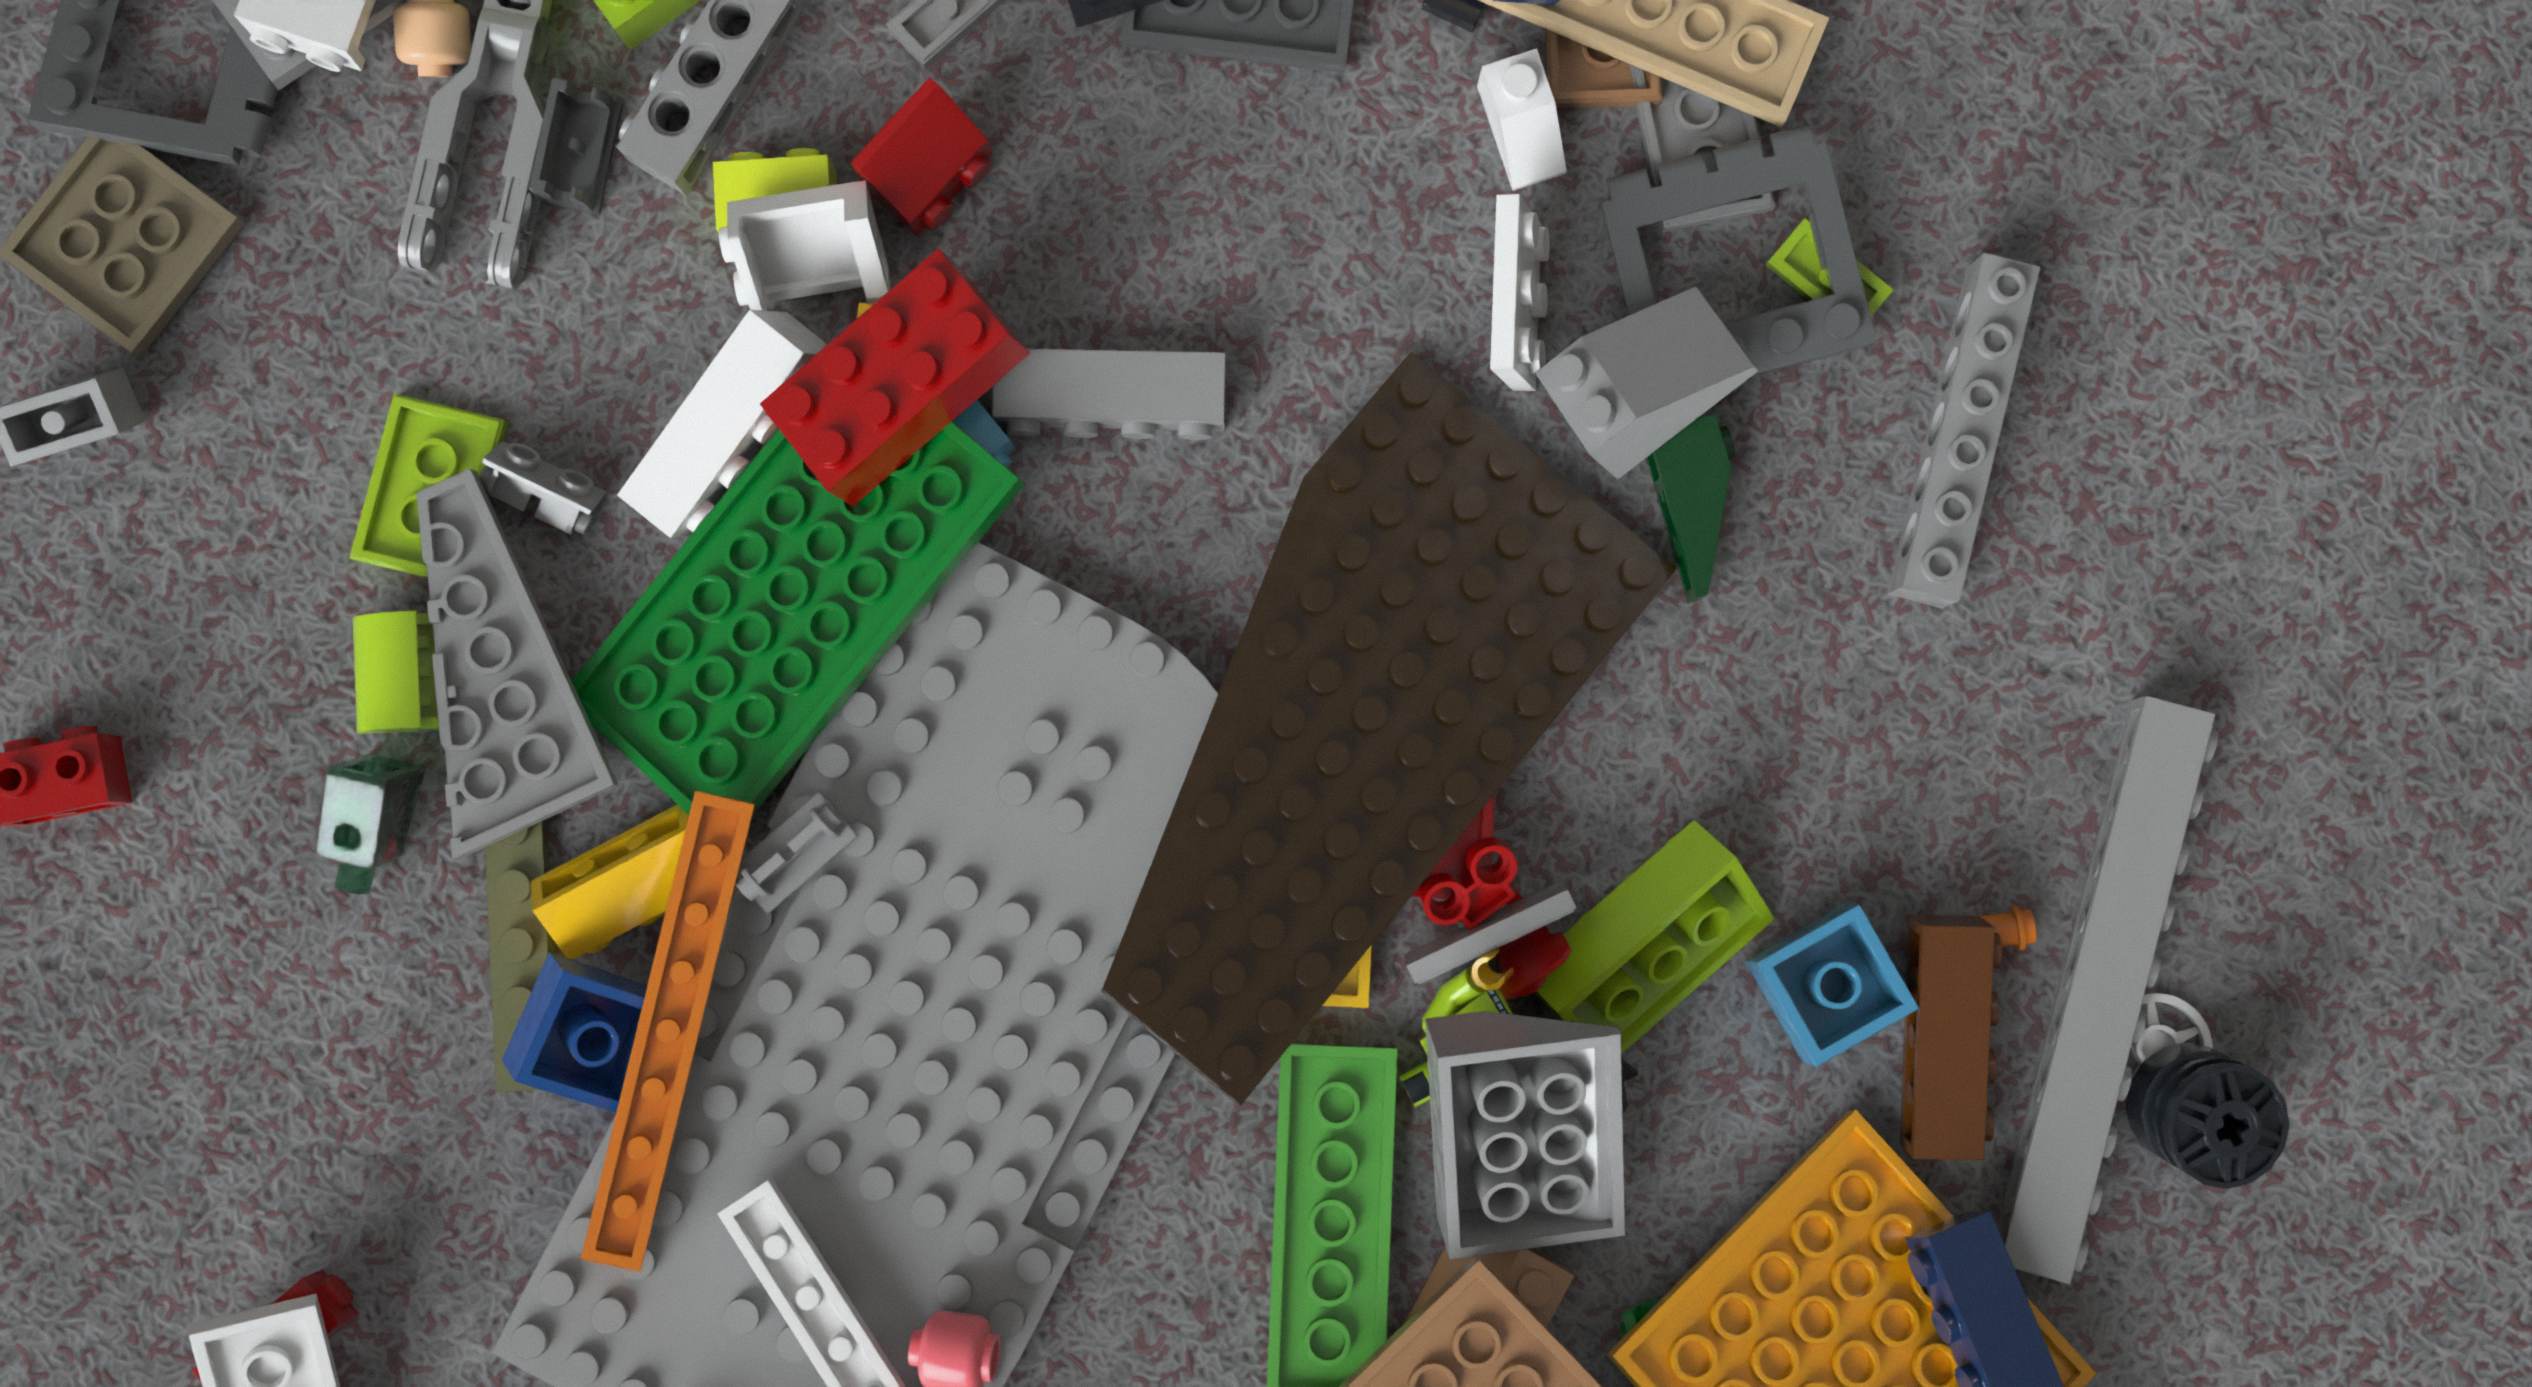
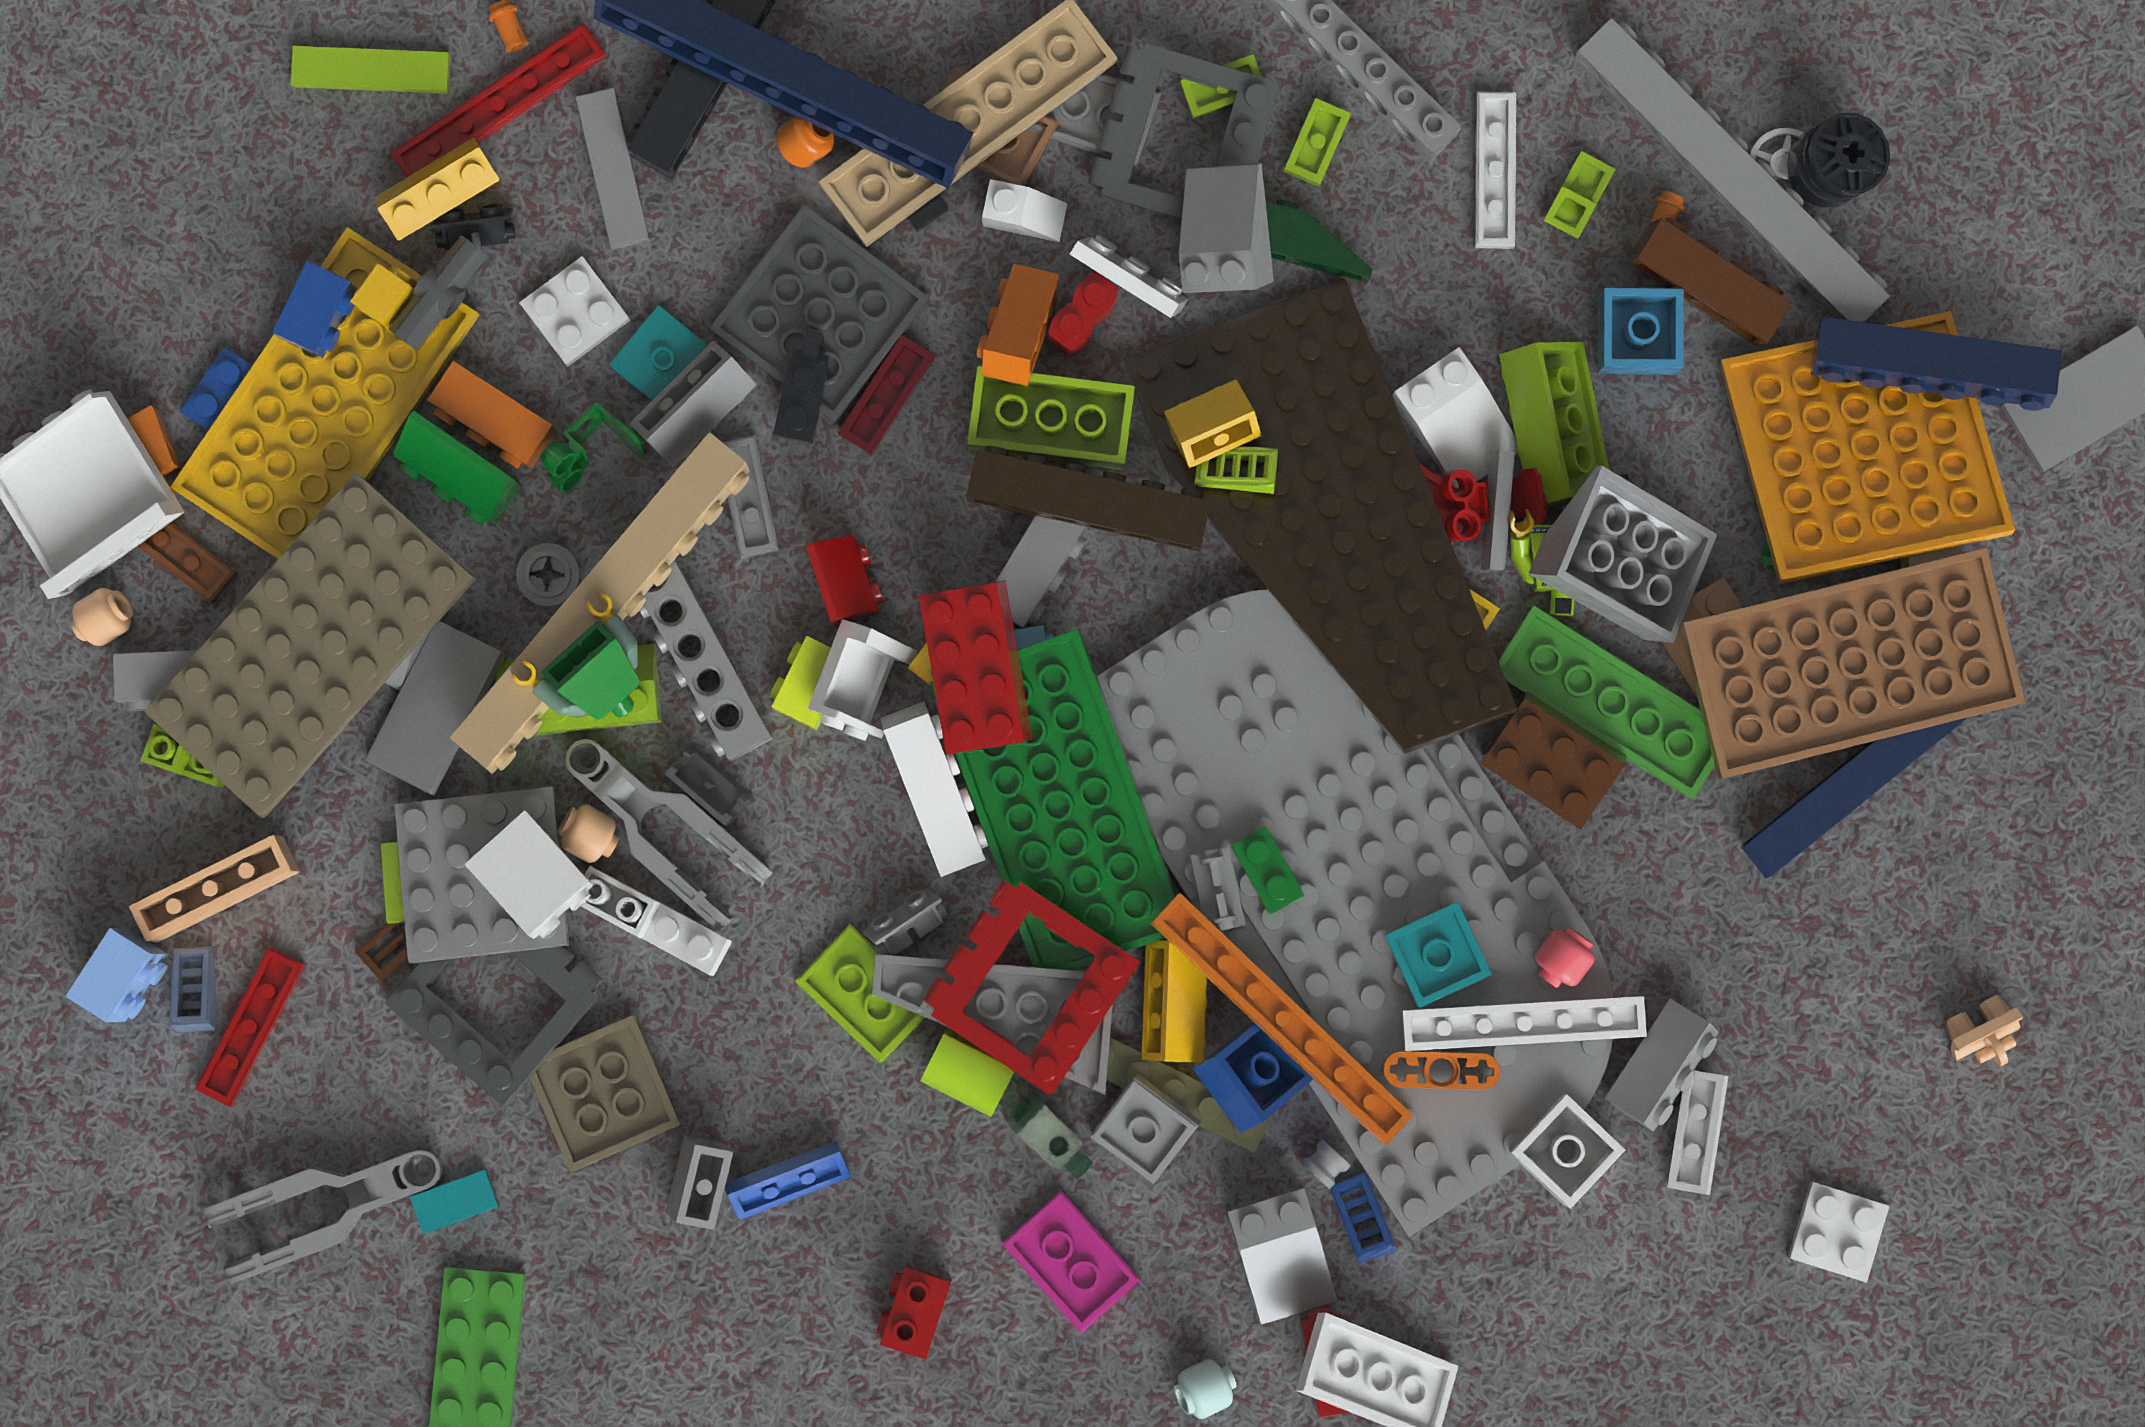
camera: 60 degrees left, 0 degrees up
(136, 525) = (787, 1180): none -> blue plate
(158, 1201) = (1205, 1389): none -> light aqua head
(234, 938) = (1071, 1261): none -> dark pink tile
(370, 171) = (655, 922): none -> white slope
(387, 1197) = (1282, 1254): none -> light grey slope
(448, 936) = (1145, 1128): none -> light grey plate
(476, 1327) = (1374, 1250): none -> blue slope
(530, 1191) = (1325, 1164): none -> light grey wheel
(534, 767) = (1078, 1015): none -> red hinge
(757, 1305) = (1471, 1060): none -> orange beam
(855, 902) = (1267, 870): none -> green plate
(867, 1184) = (1437, 955): none -> teal plate
(1192, 85) = (886, 395): none -> dark red plate
(1198, 402) = (1088, 499): none -> dark brown brick
(1210, 1190) = (1554, 760): none -> reddish brown brick
(1279, 300) = (1053, 419): none -> lime brick
(1348, 614) = (1249, 483): none -> lime slope
(1372, 189) = (1018, 324): none -> orange brick
(1385, 501) = (1212, 423): none -> yellow brick
(1421, 265) = (1090, 307): none -> red brick
(1582, 810) = (1455, 416): none -> white slope
(1829, 435) = (1317, 142): none -> lime plate
(1928, 681) = (1495, 169): none -> white tile
(1960, 806) = (1579, 194): none -> lime slope

